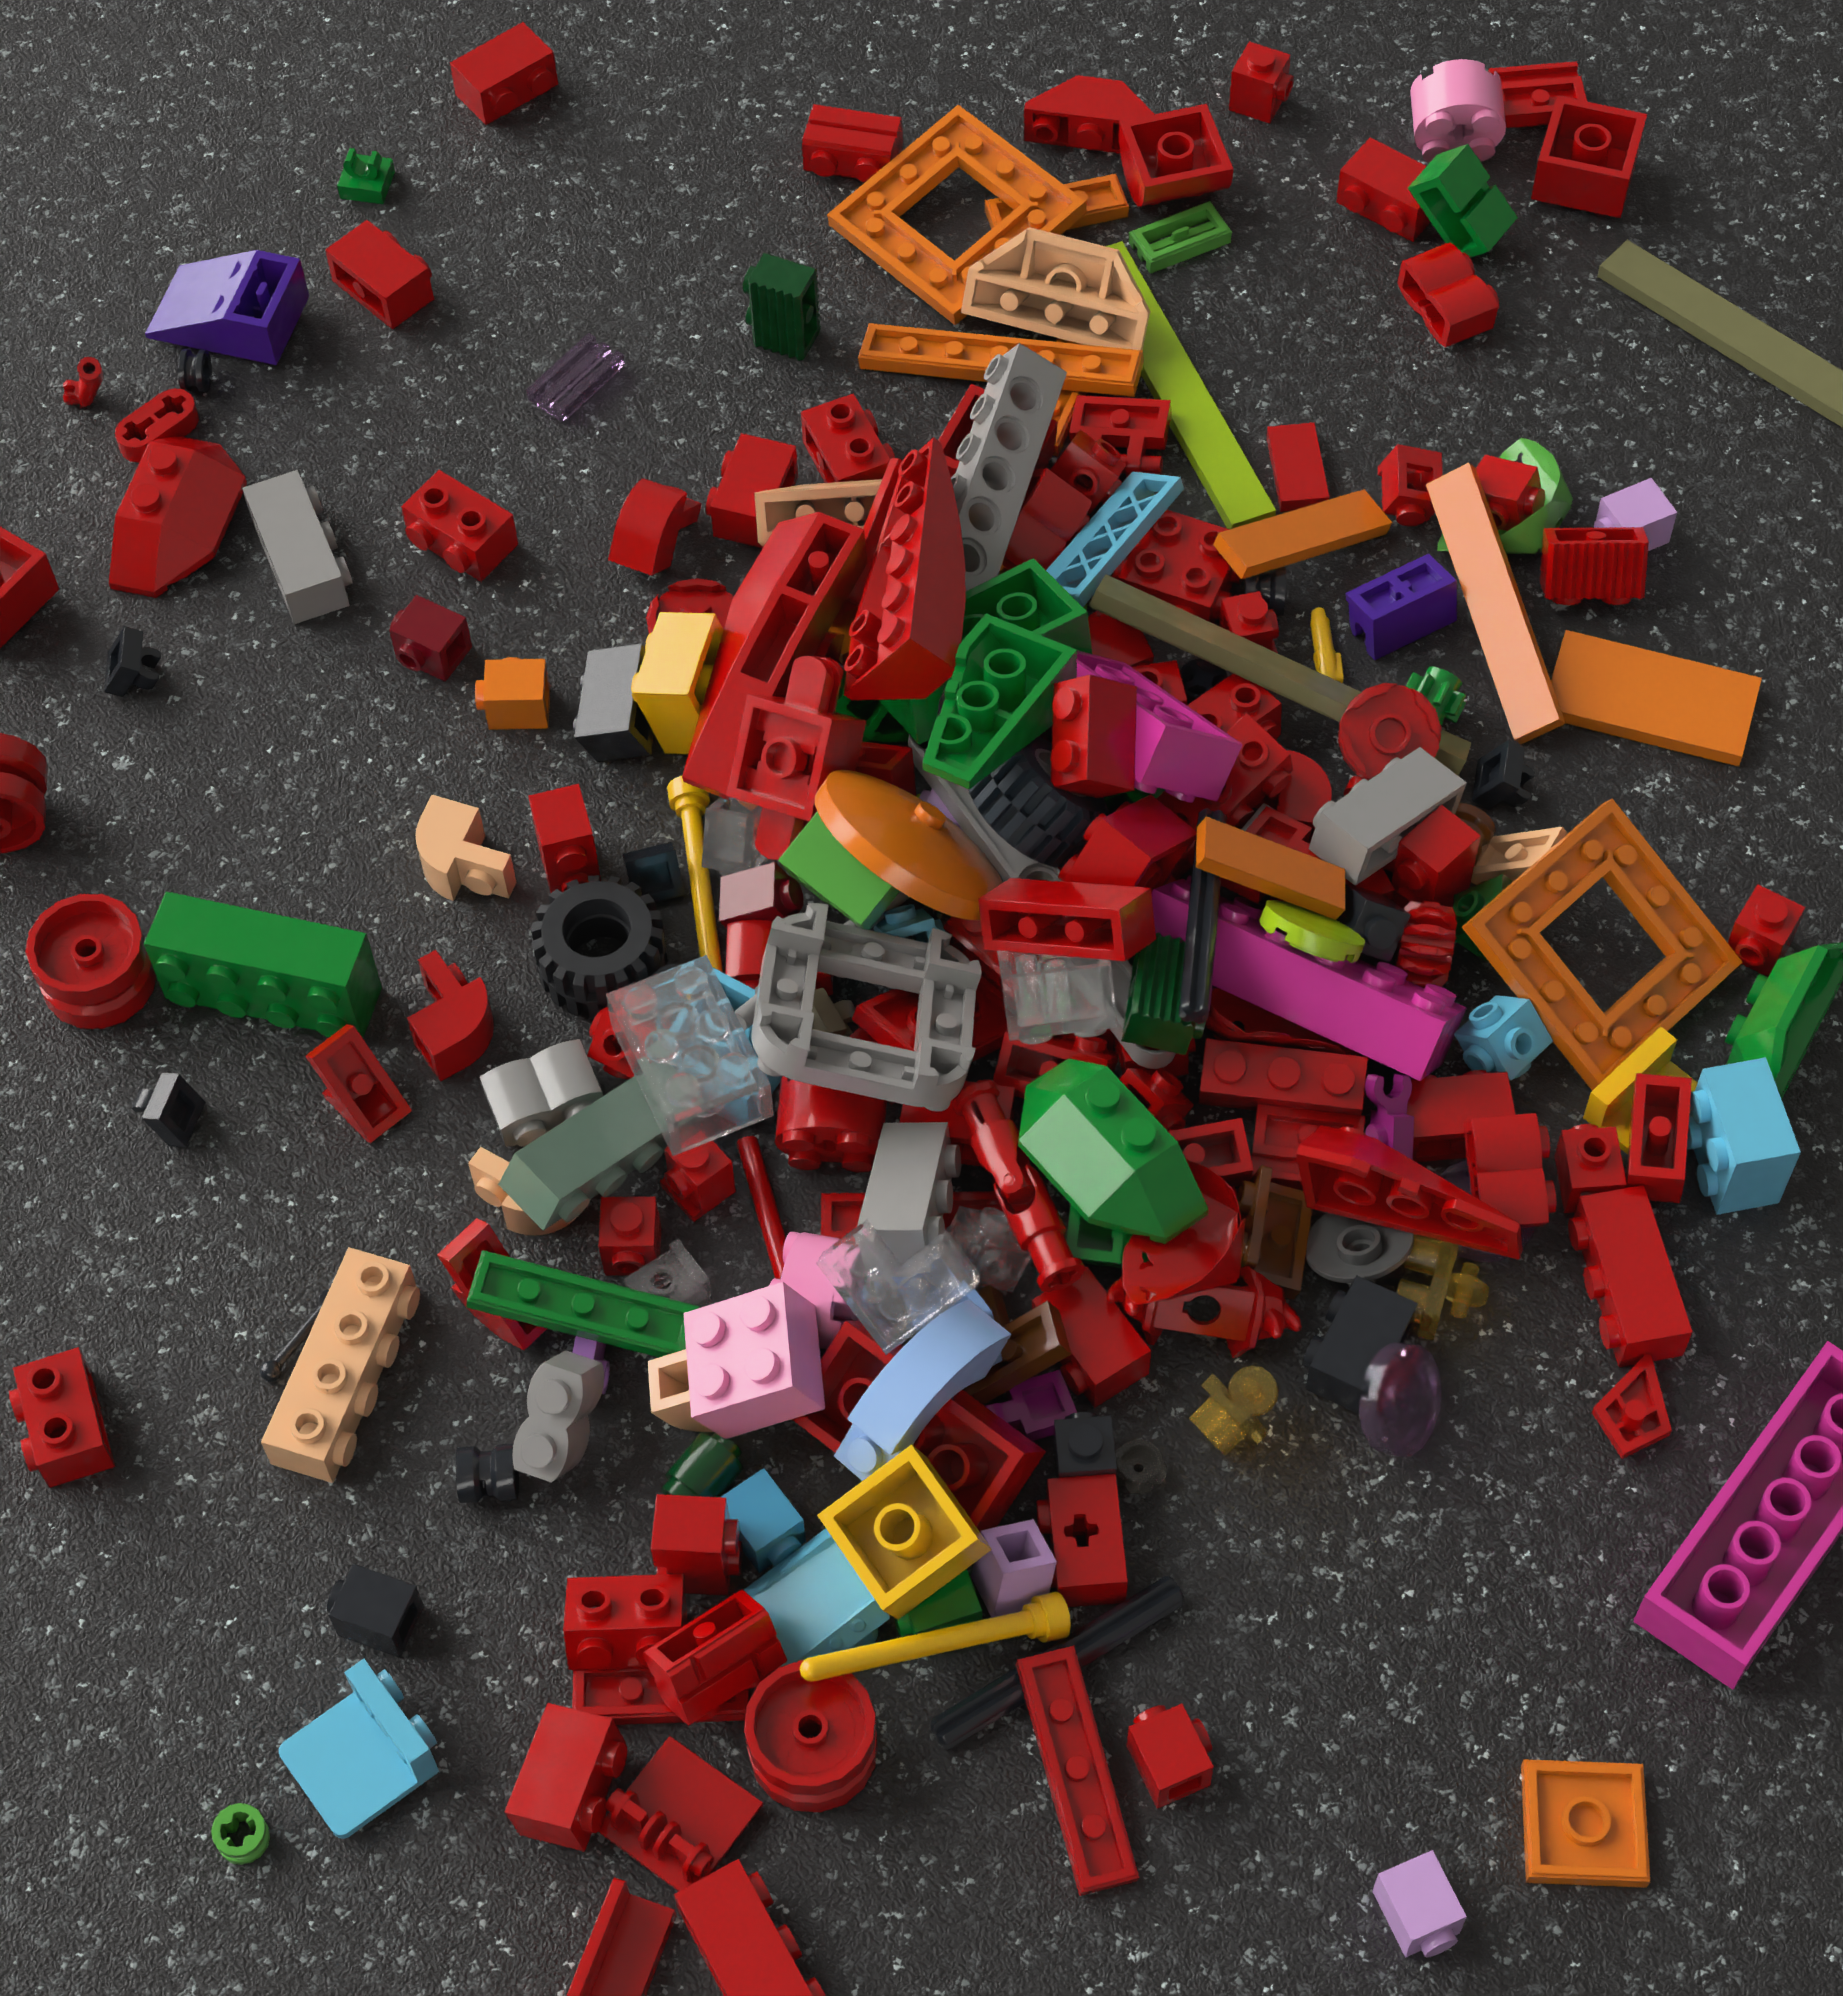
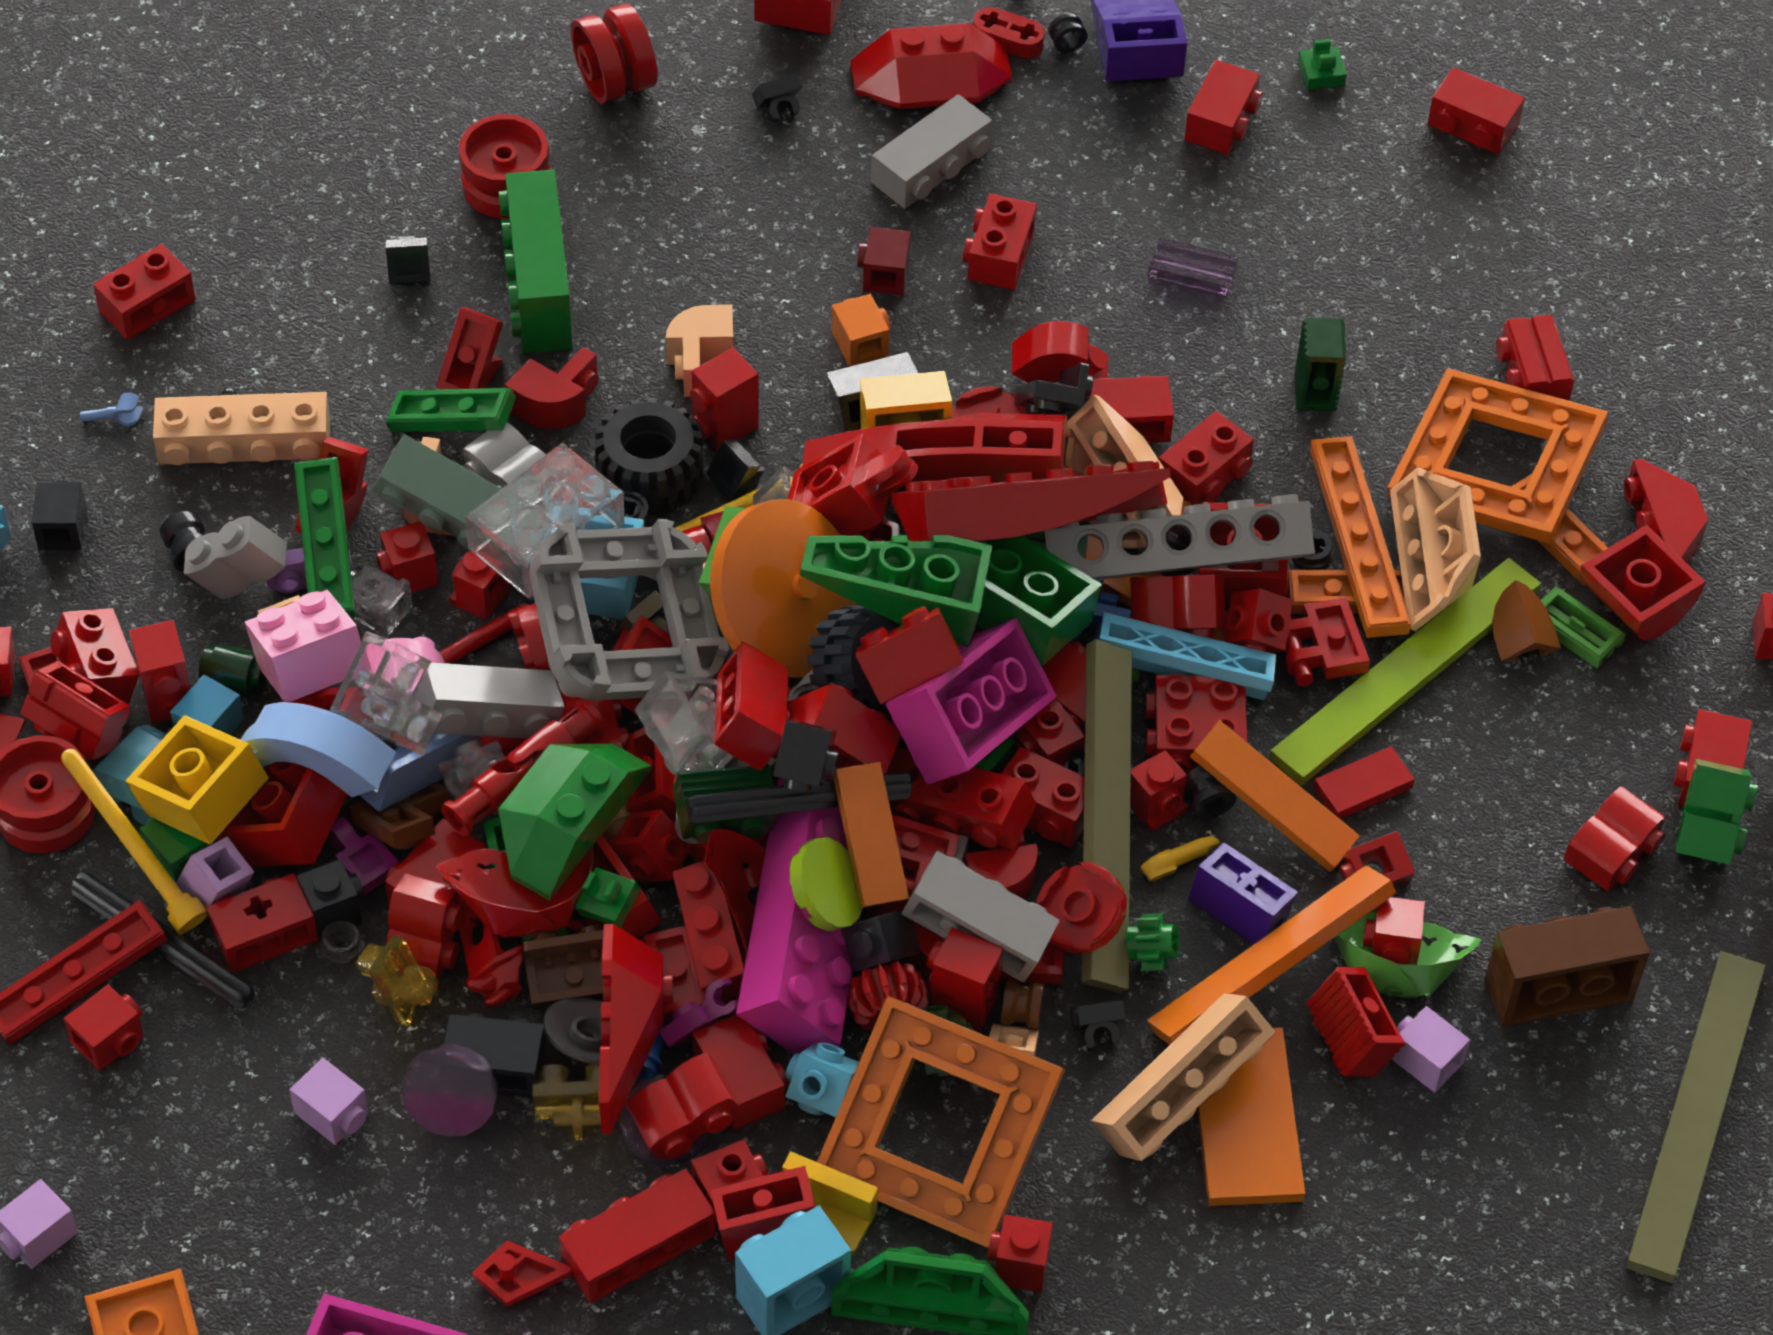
camera: 65 degrees right, 5 degrees down
(240, 1495) = (124, 413): none -> medium blue hand
(431, 1128) = (451, 410): none -> green tile
(718, 527) = (1048, 397): none -> black bracket
(1171, 273) = (1522, 624): none -> dark orange brick
(1173, 1360) = (426, 918): none -> red brick
(1186, 873) = (806, 756): none -> black brick
(1228, 1152) = (607, 897): none -> green tile
(1358, 1535) = (329, 1101): none -> lavender brick
(1594, 375) = (1566, 965): none -> reddish brown brick
(1618, 718) = (1183, 1076): none -> light nougat brick

